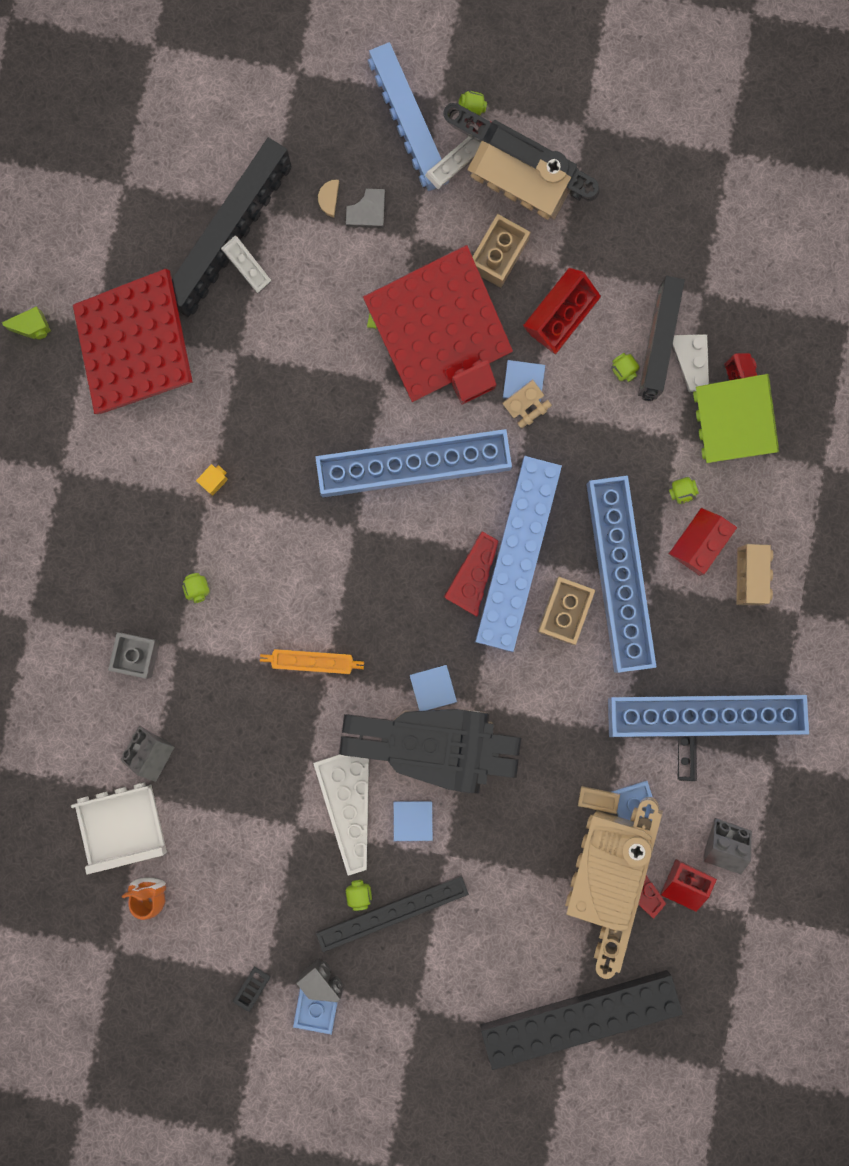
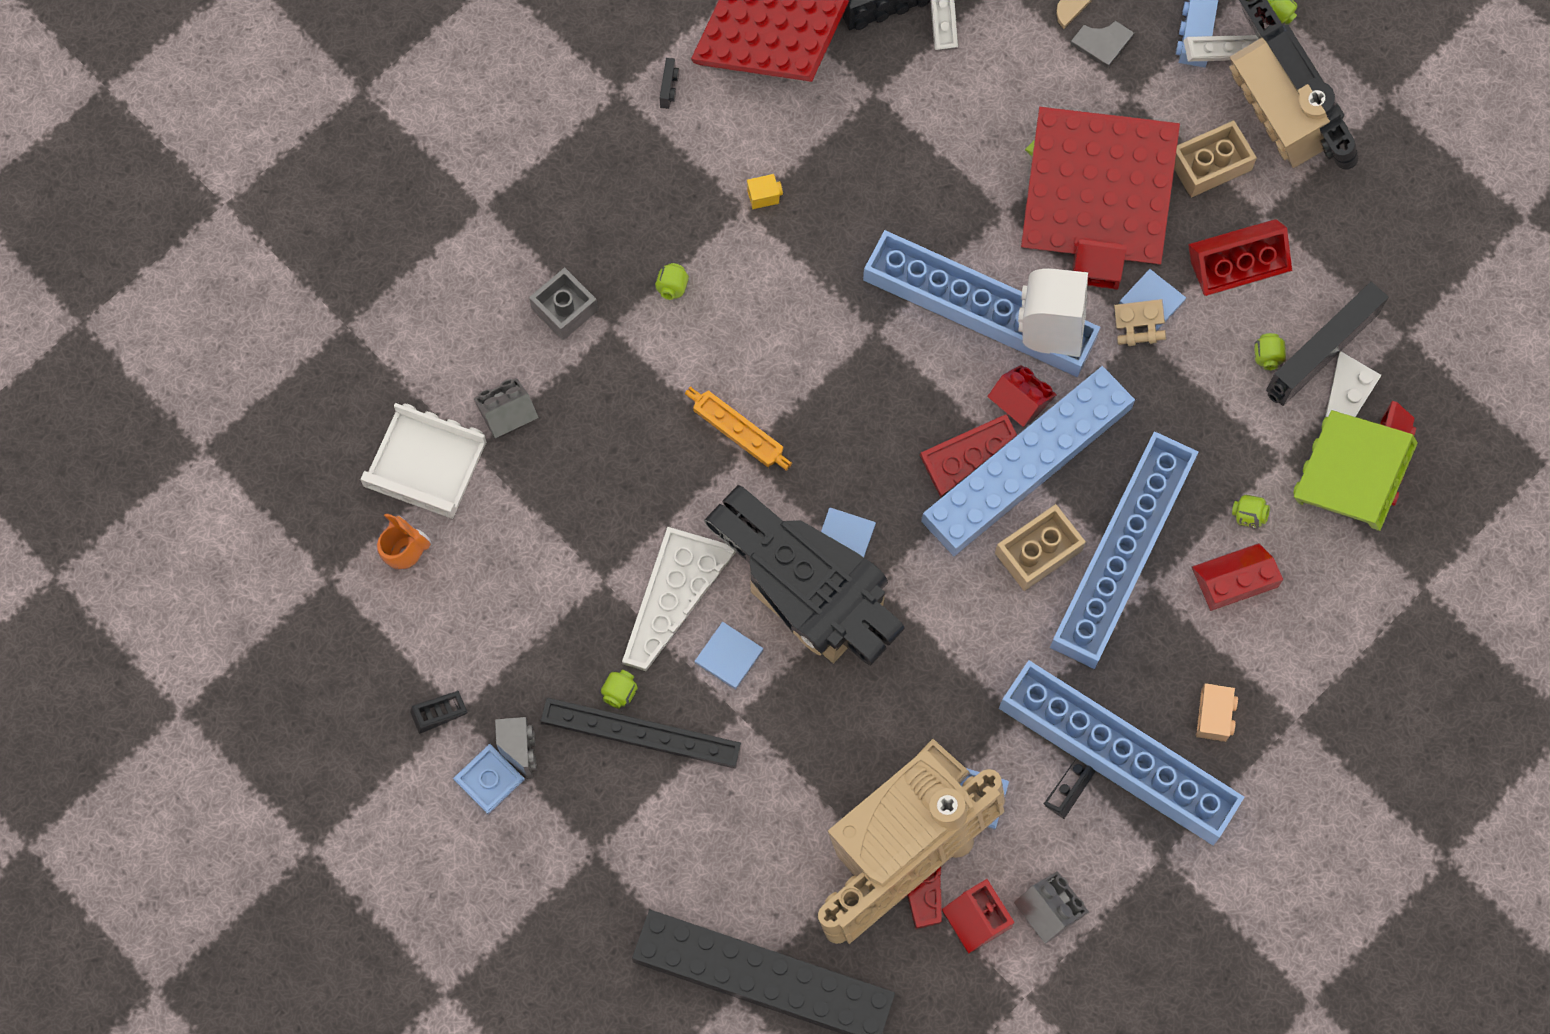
camera: 35 degrees right, 15 degrees down
(88, 435) = (667, 91): none -> black plate
(475, 447) = (1054, 311): none -> white brick
(483, 509) = (1021, 394): none -> red slope
(749, 645) = (1216, 712): none -> light nougat brick
(754, 574) = (1270, 640): tan brick -> none

